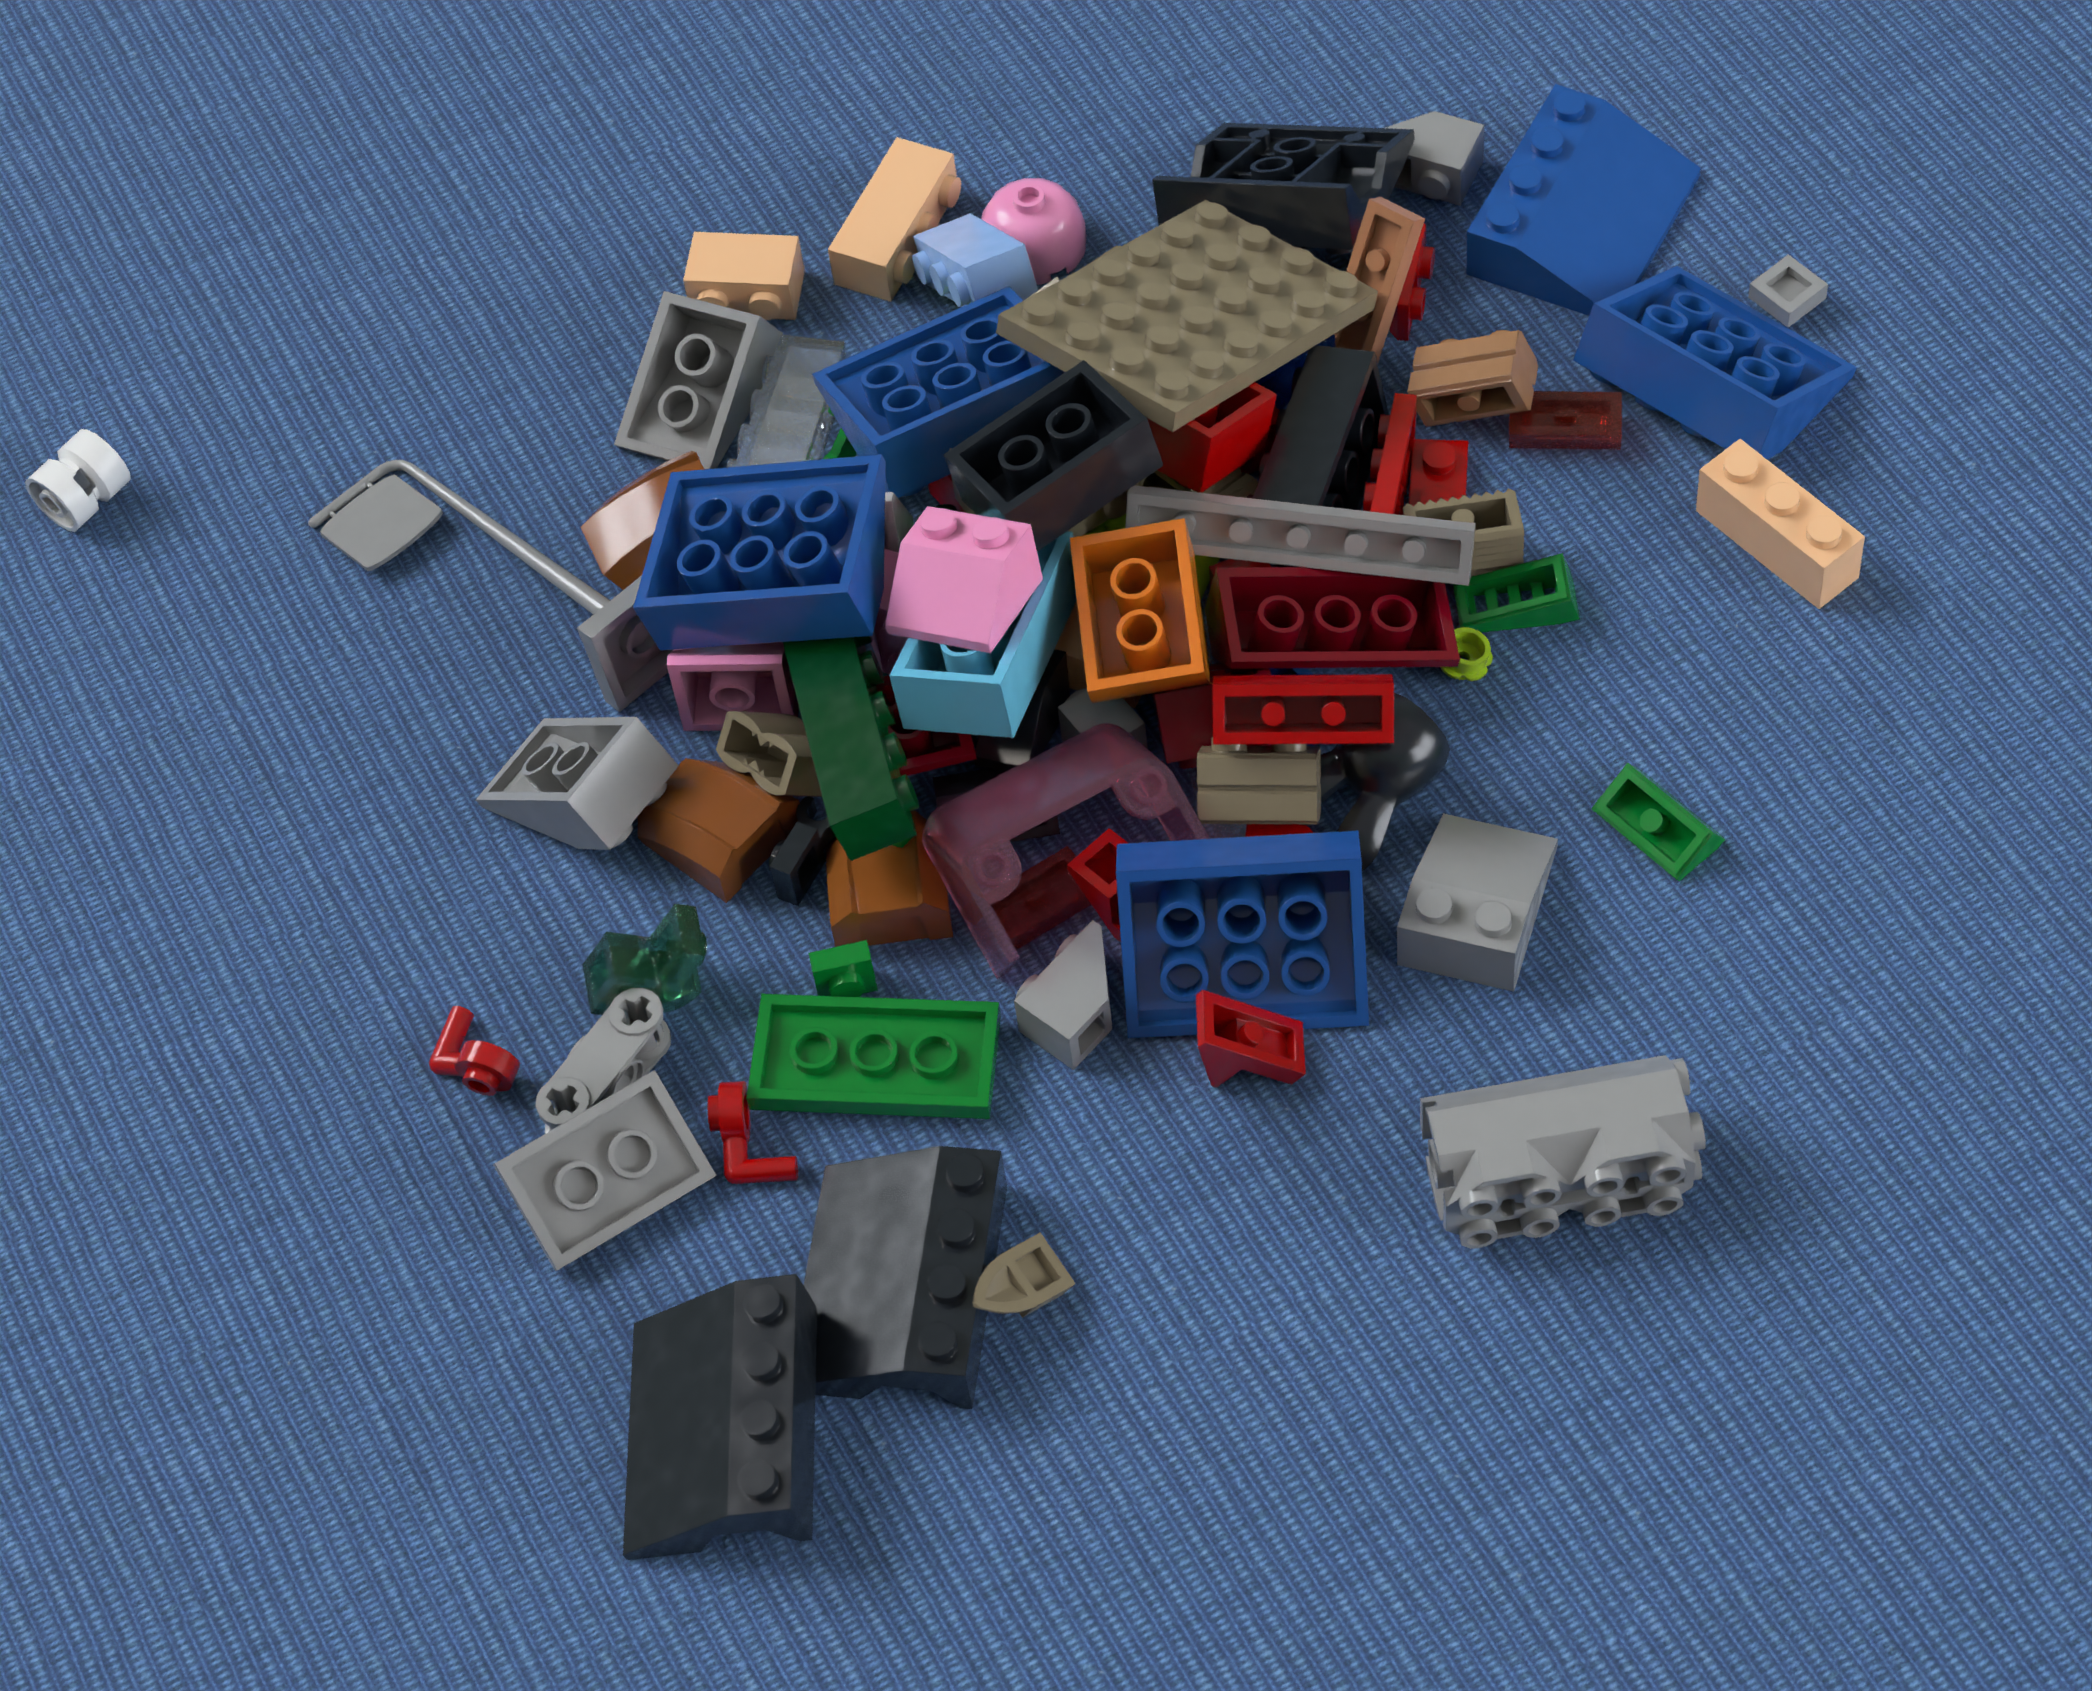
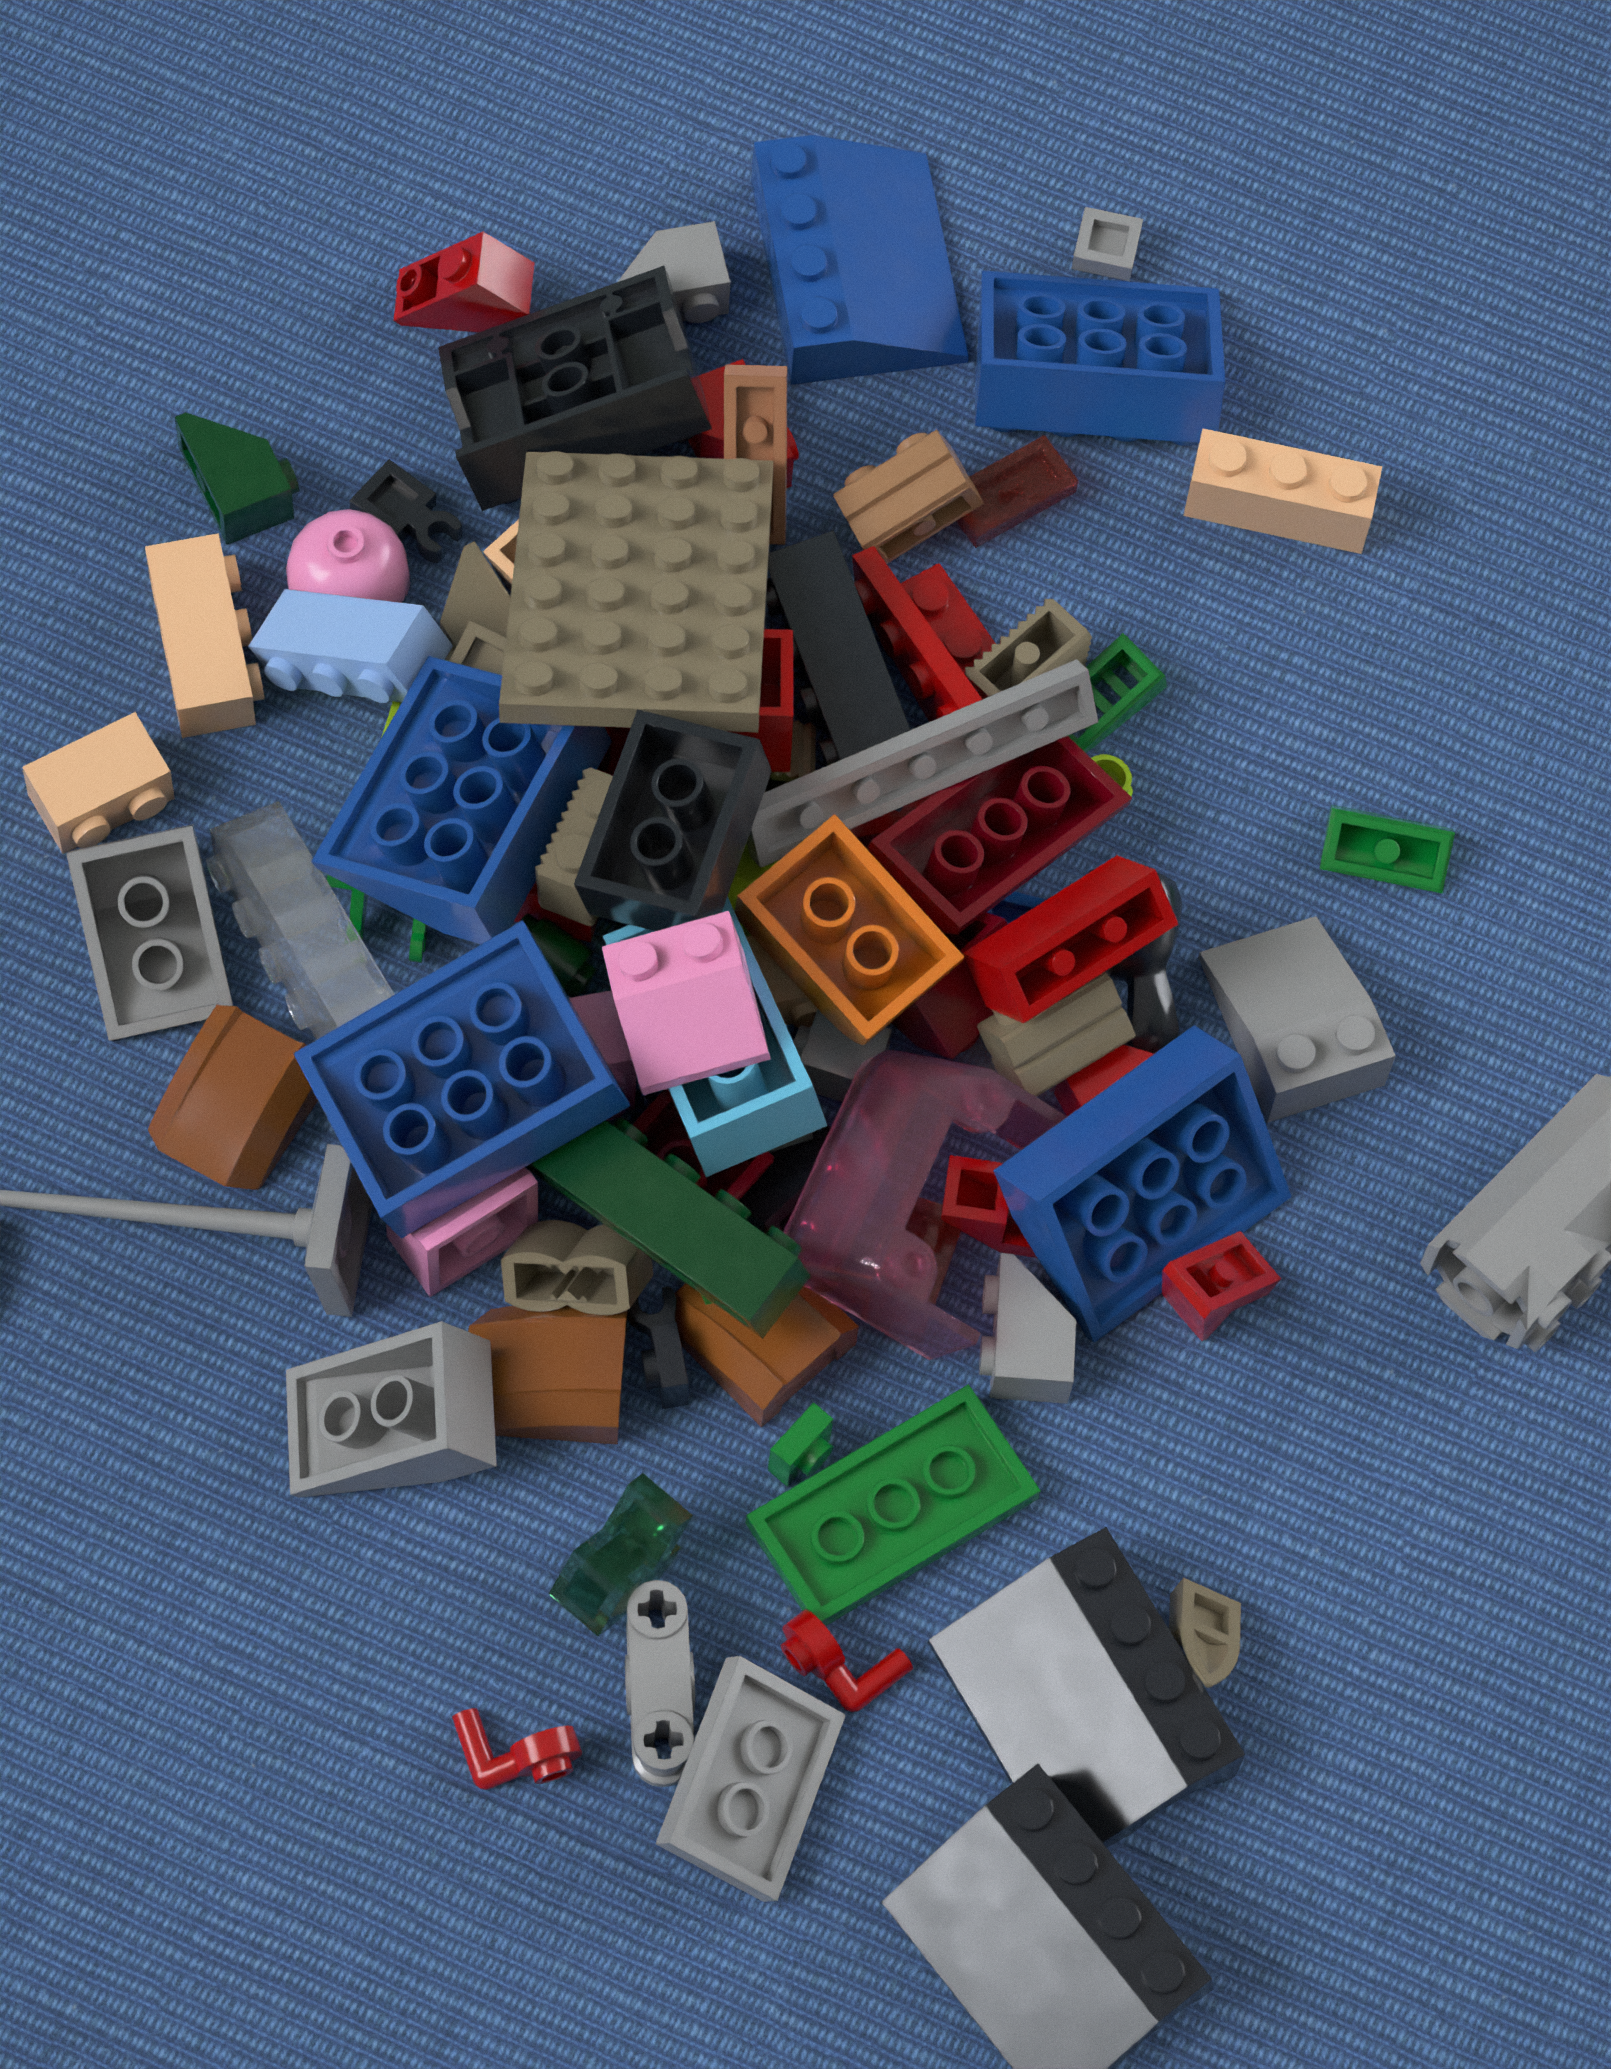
camera: 50 degrees left, 10 degrees up
(1005, 133) = (237, 476): none -> dark green slope
(1105, 209) = (407, 508): none -> black plate
(1272, 87) = (465, 287): none -> red slope

